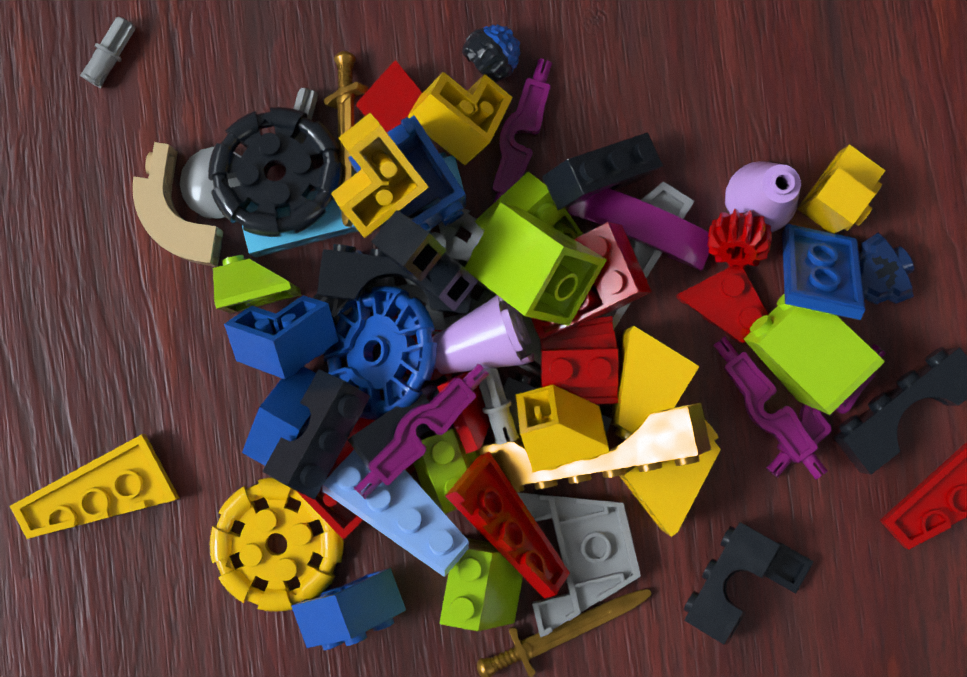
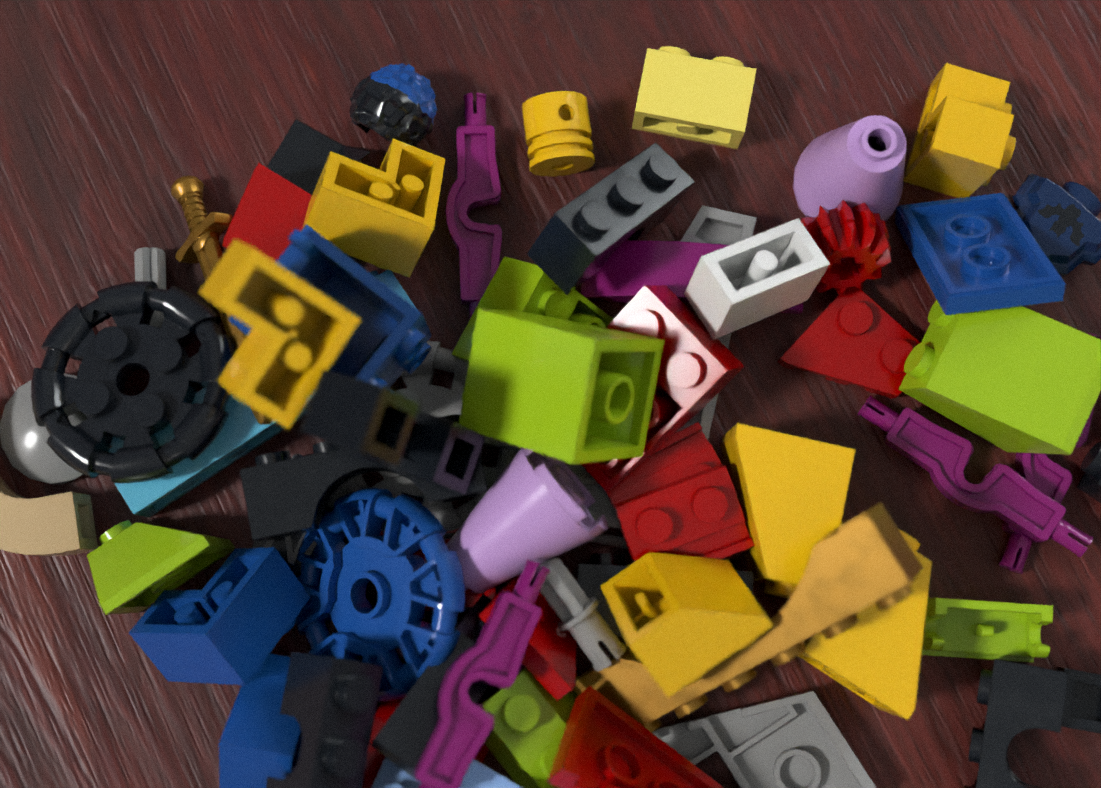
camera: 15 degrees left, 5 degrees down
(426, 64) = (305, 154): none -> black sticker
(589, 104) = (558, 133): none -> yellow piece
(677, 240) = (755, 278): none -> white brick
(683, 110) = (694, 97): none -> light yellow brick
(740, 502) = (985, 629): none -> lime hinge

